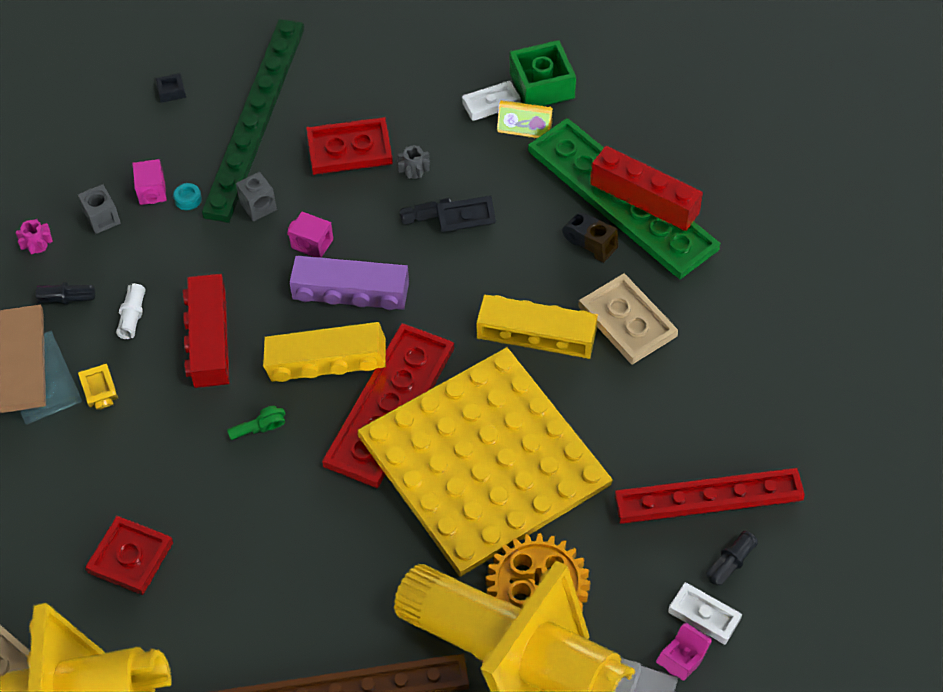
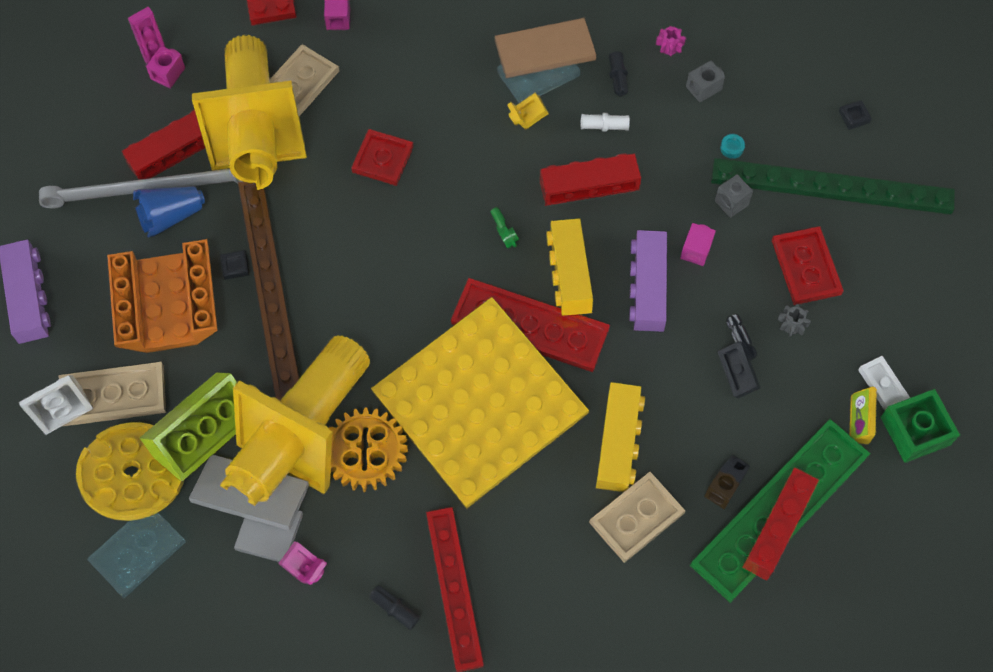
camera: 85 degrees right, 10 degrees up
(149, 182) = (739, 113): dark pink brick -> none
(705, 613) = (341, 583): white plate -> none

